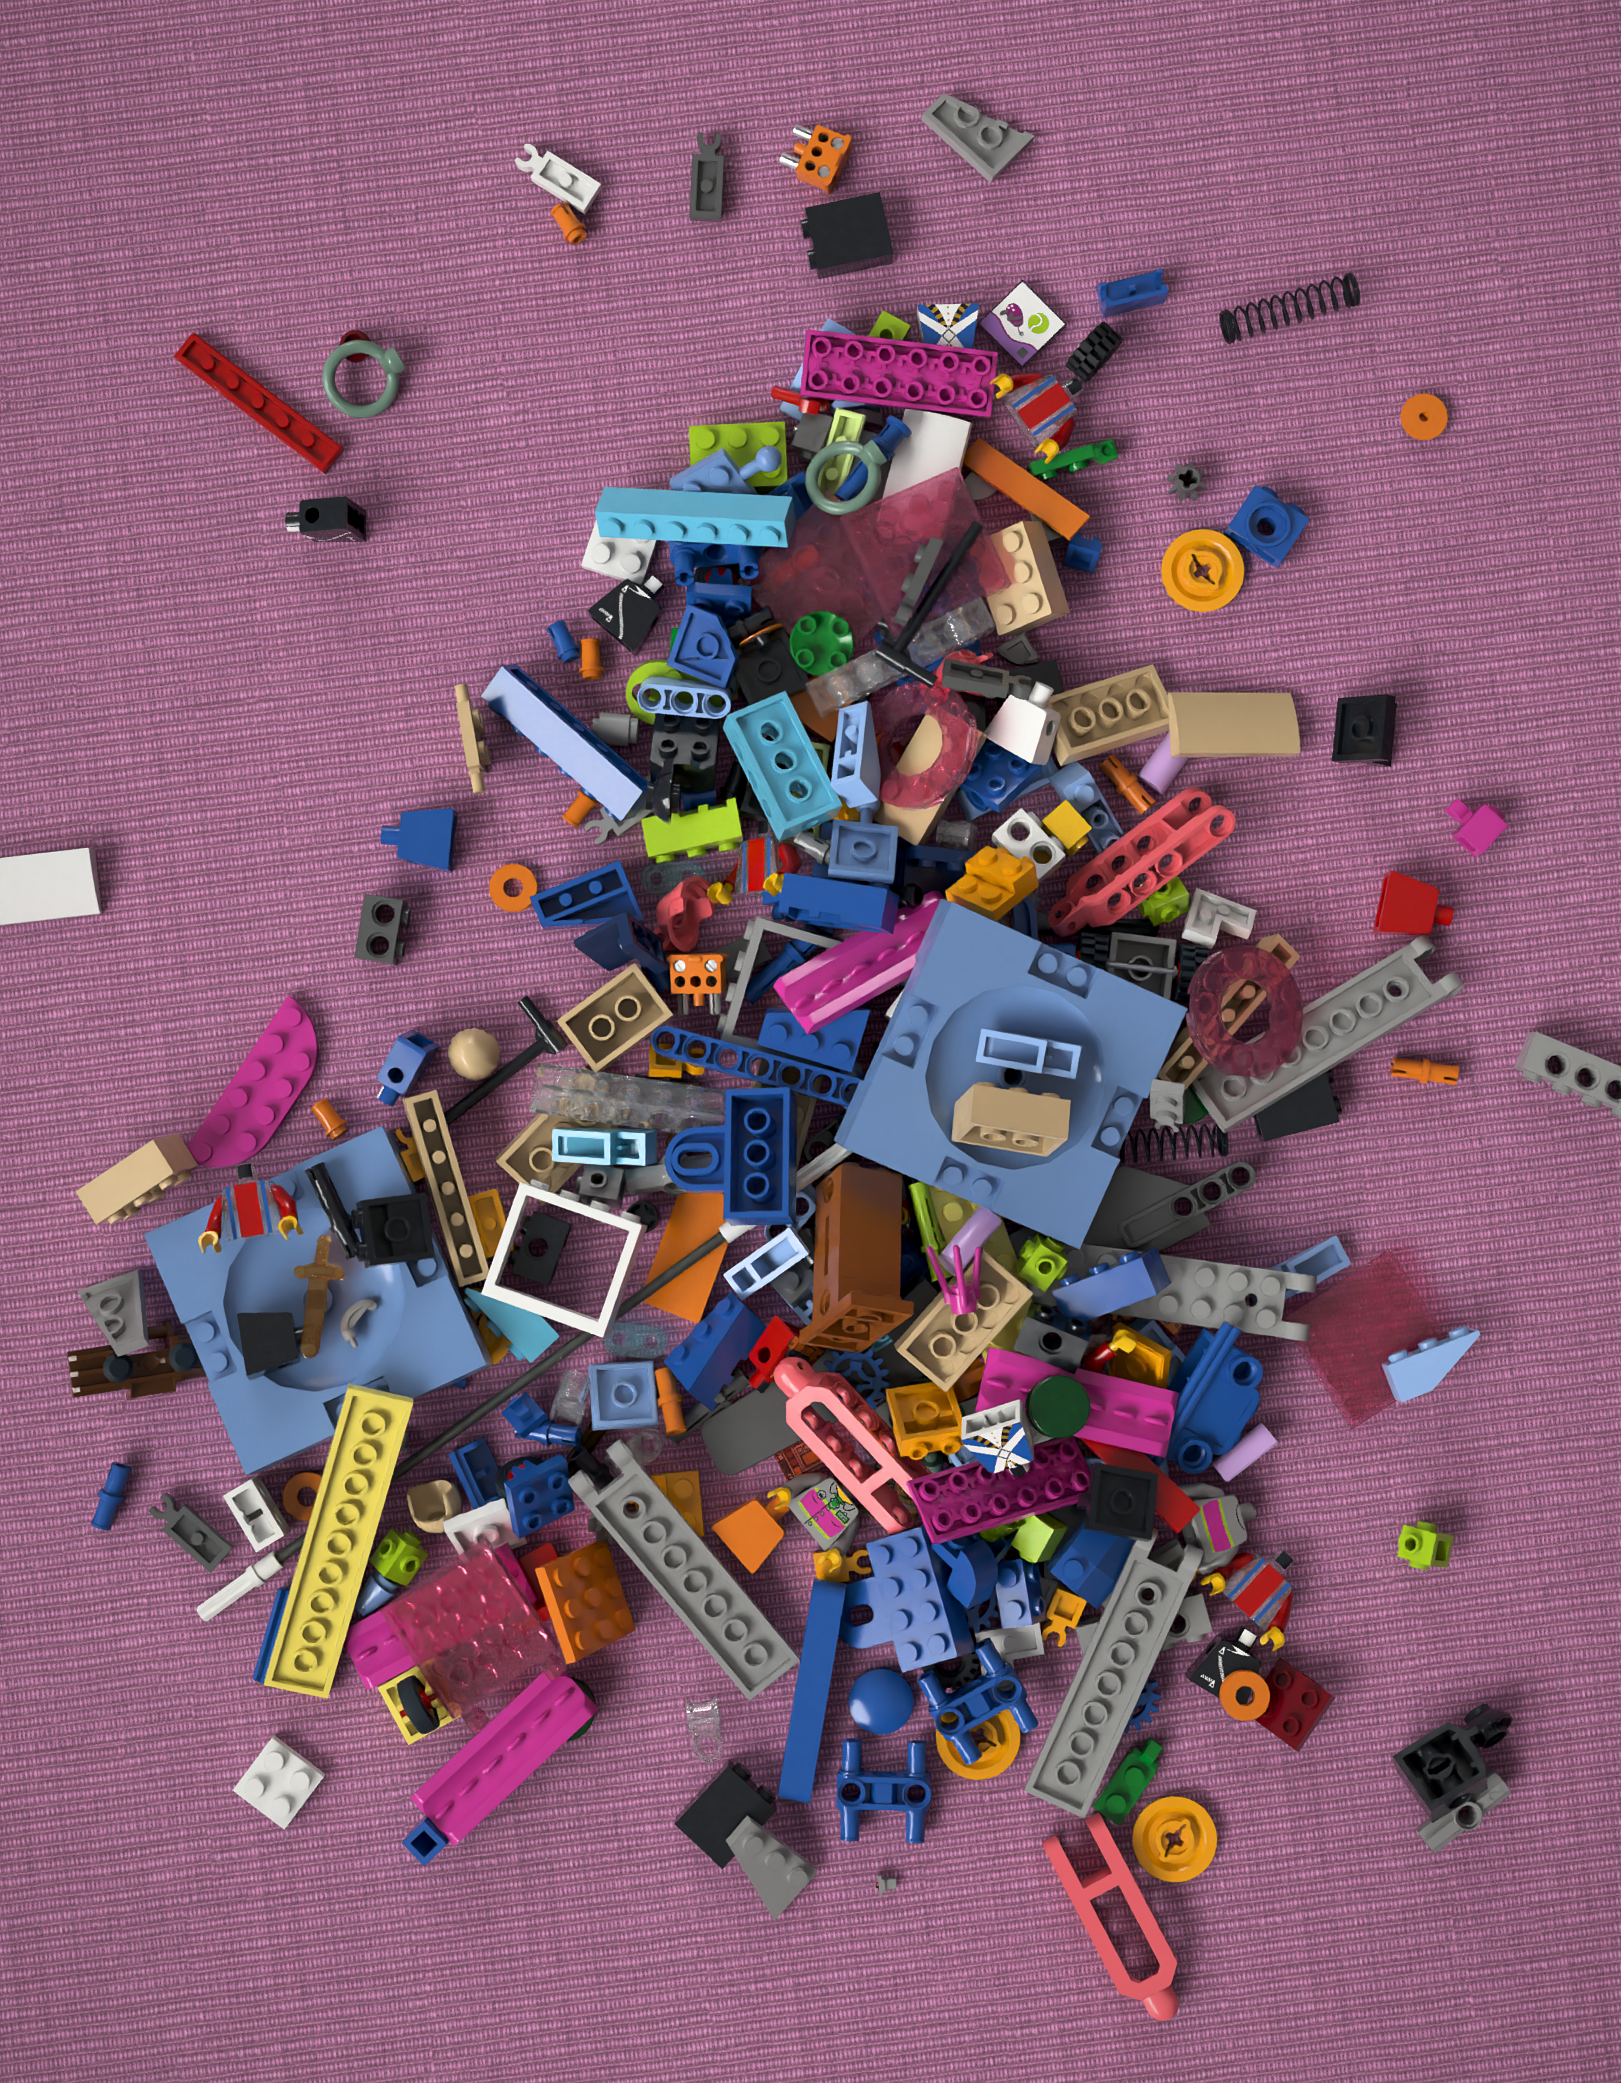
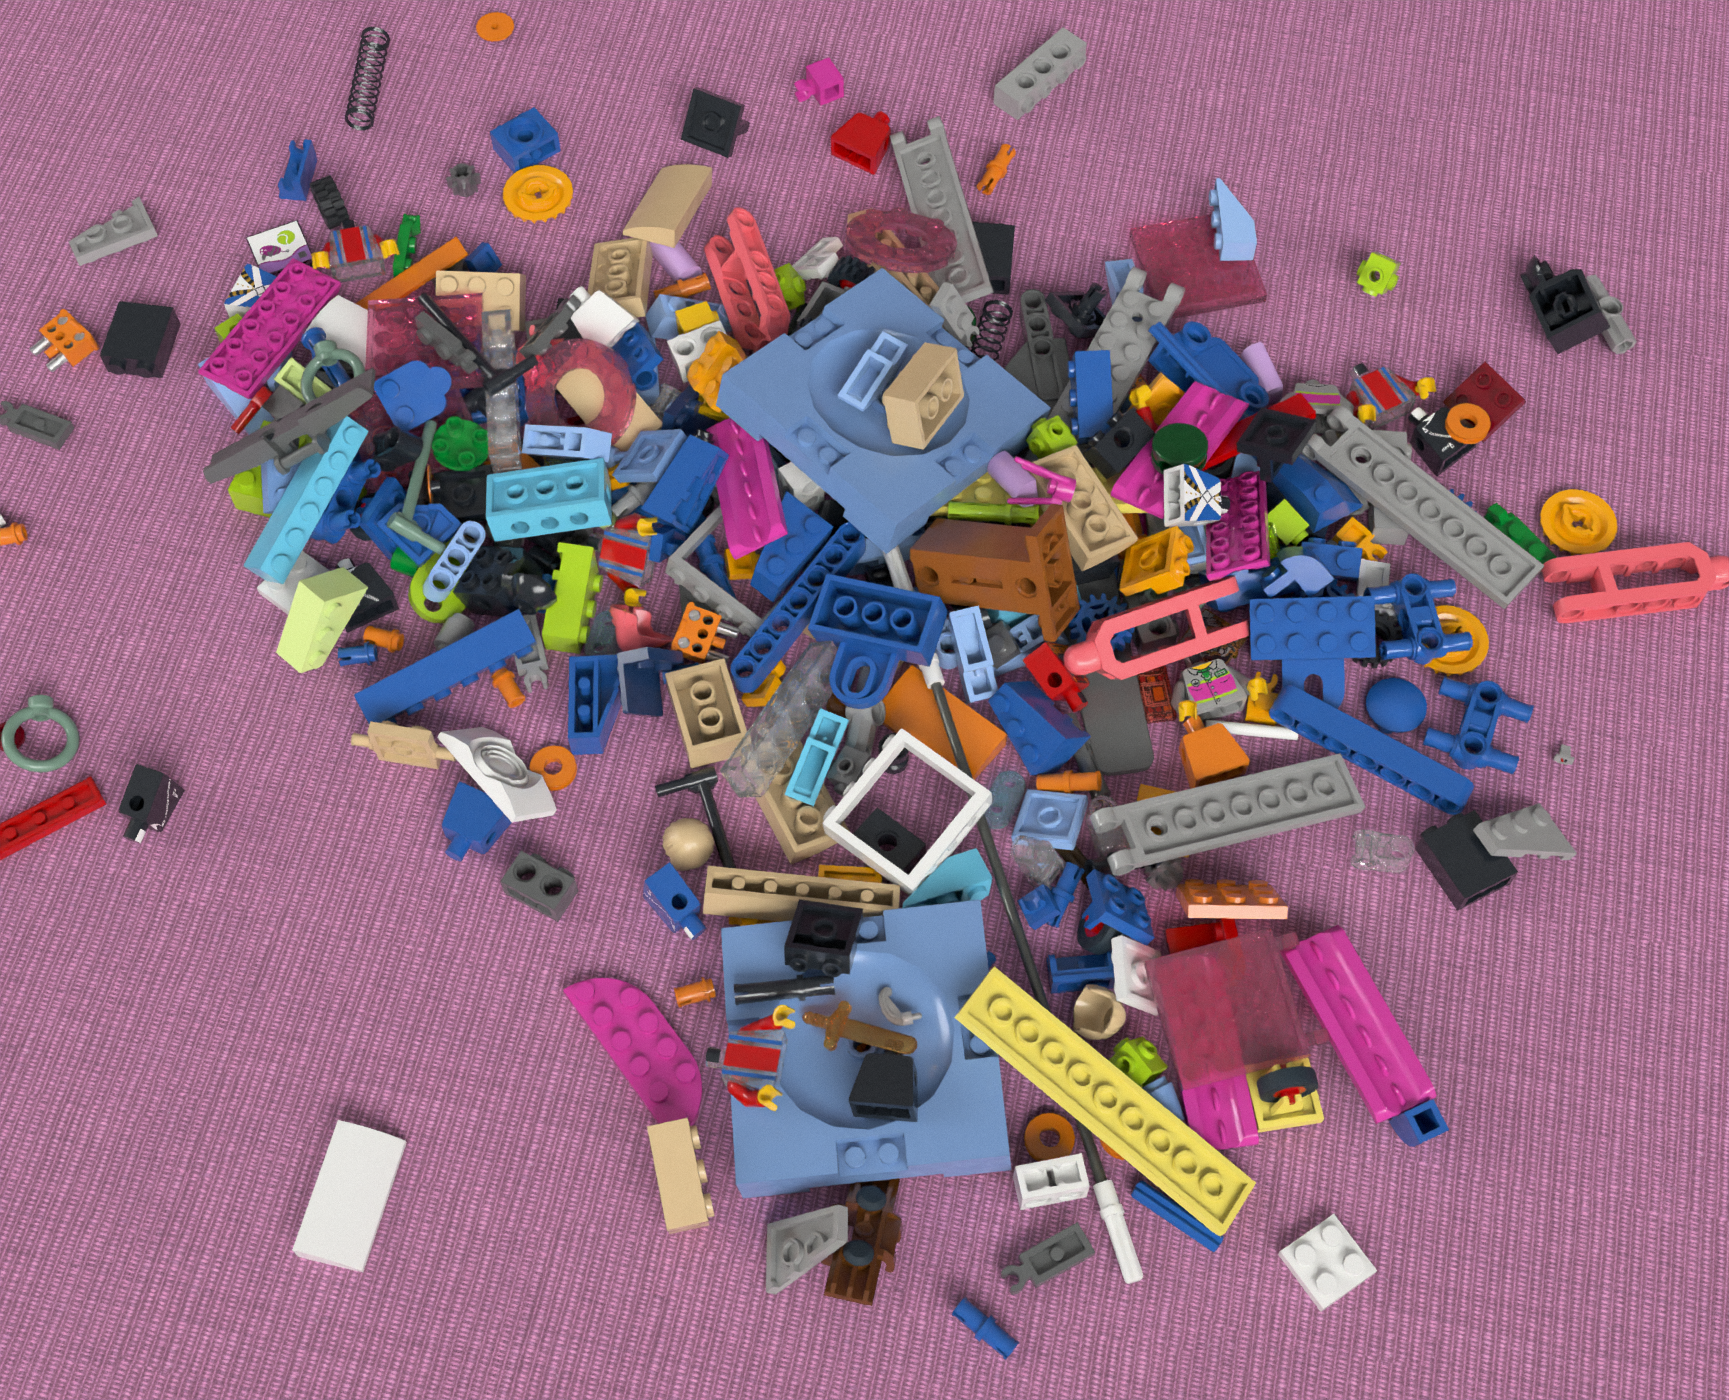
camera: 70 degrees left, 25 degrees down
(478, 841) = (500, 772): none -> white slope
(574, 593) = (319, 617): none -> yellowish green wedge
(688, 635) = (403, 521): none -> sand green bar
(763, 485) = (280, 438): none -> dark grey piece
(782, 583) = (396, 448): none -> black piece
(799, 1557) = (1256, 730): none -> white bar
(850, 571) = (414, 393): none -> blue plate
(1251, 1236) = (1079, 310): none -> black plate

